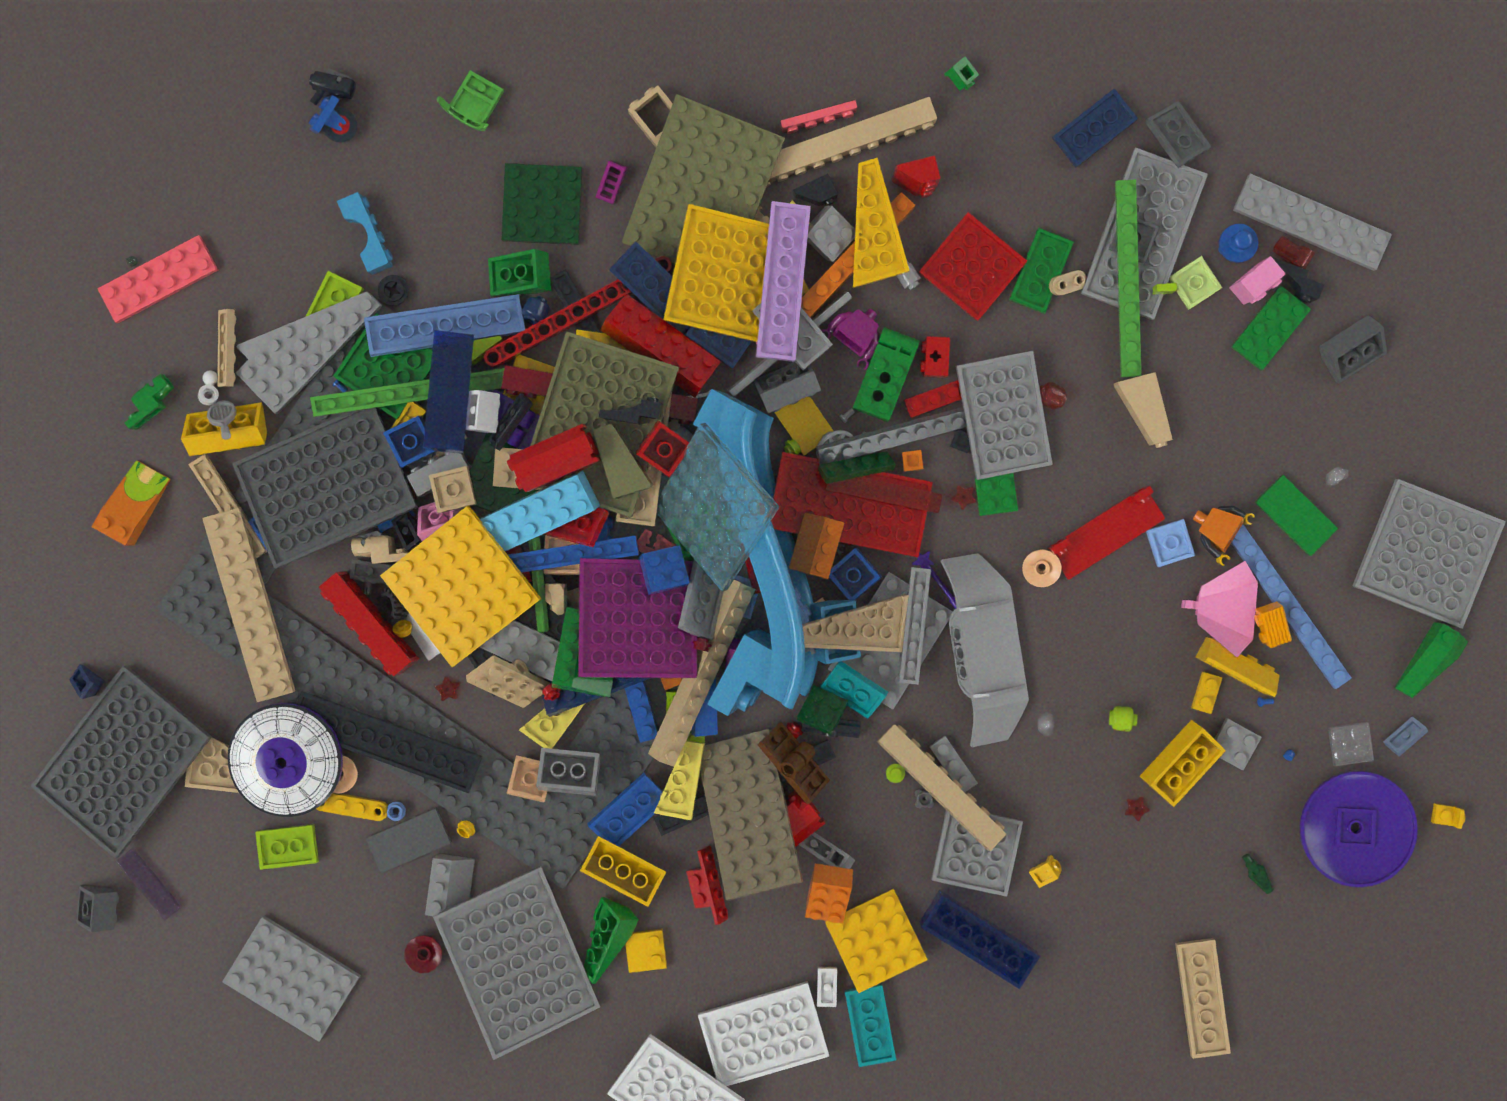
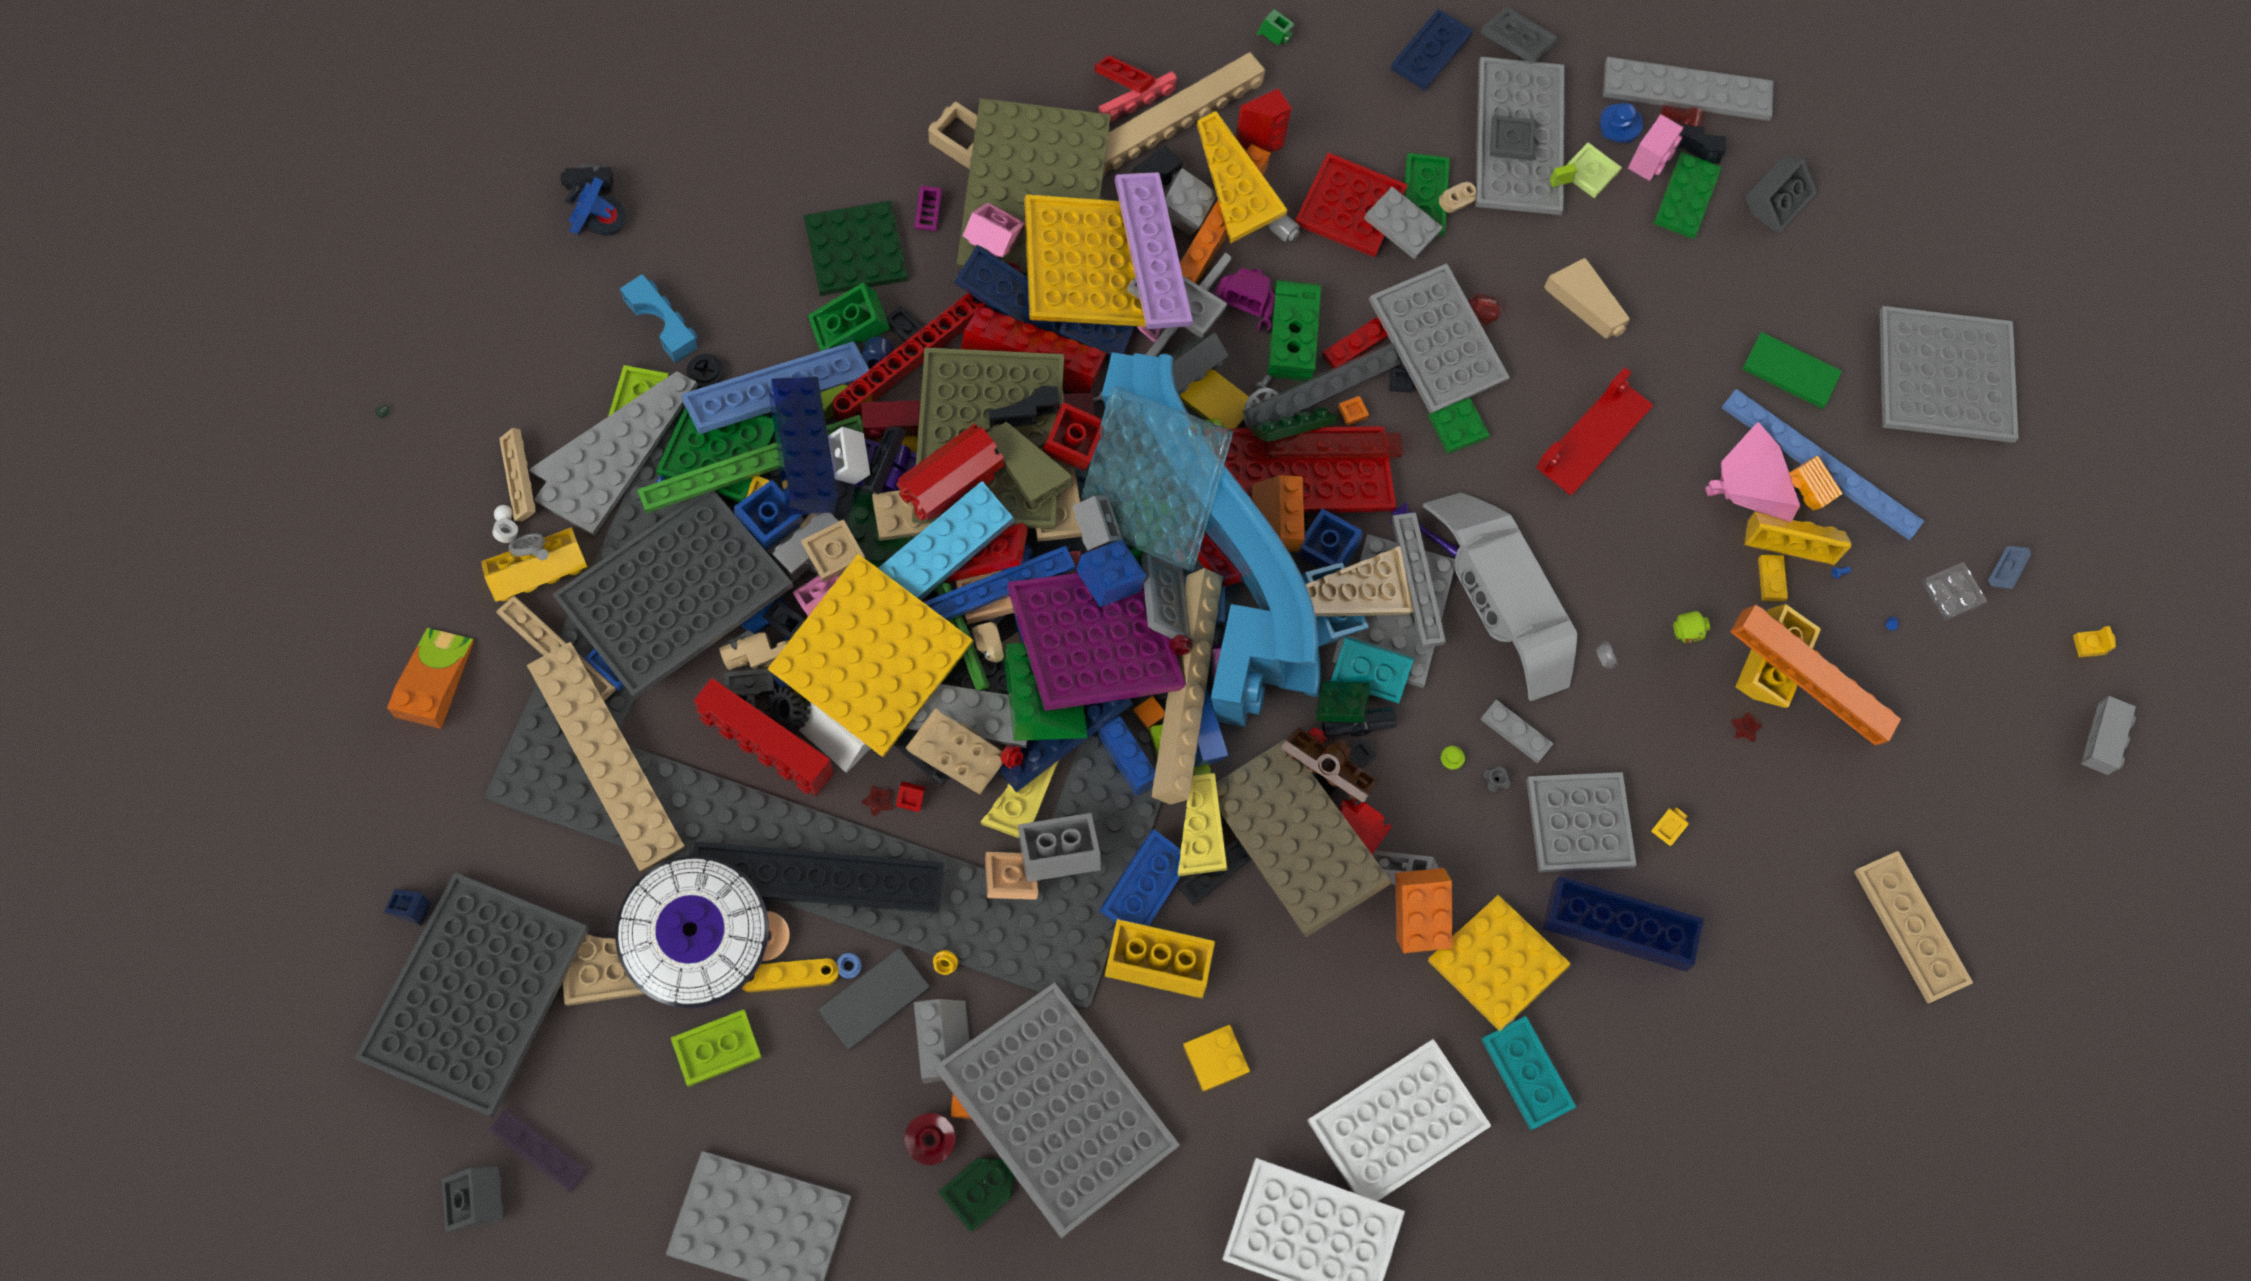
camera: 25 degrees left, 20 degrees down
(149, 400) = (432, 554): green plate -> none
(158, 279) = (418, 422): coral plate -> none
(402, 628) = (807, 734): yellow plate -> none
(446, 999) = (978, 1191): none -> dark green tile
(471, 695) = (910, 796): none -> red plate
(473, 101) = (752, 163): bright green piece -> none
(611, 932) = (1165, 1043): green wedge -> none
(654, 228) = (994, 230): none -> bright pink brick
(664, 525) = (1097, 522): none -> light grey brick
(706, 886) = (1267, 953): red bracket -> none
(813, 91) = (1124, 74): none -> red tile
(827, 986) = (1458, 1038): white plate -> none
(941, 347) = (1342, 299): red brick -> none
(941, 787) = (1513, 753): tan brick -> none
(963, 502) = (1424, 441): clear red plate -> none
(1010, 298) = (1403, 222): none -> light grey plate
(1040, 577) = (1546, 478): light nougat dish -> none
(1128, 277) = (1521, 174): bright green plate -> none
(1170, 543) = (1668, 430): light blue tile -> none
(1203, 791) = (1815, 675): none -> orange brick
(1220, 529) = (1717, 400): orange torso -> none
(1237, 742) = (1834, 624): light grey plate -> none
(1258, 874) = (1914, 765): dark green piece -> none
(1336, 475) = (1817, 319): clear plate -> none
(1384, 834) = (2027, 658): dark purple dish -> none
(1424, 894) = (2109, 735): none -> light grey brick
(1435, 654) = (2002, 475): green wedge -> none

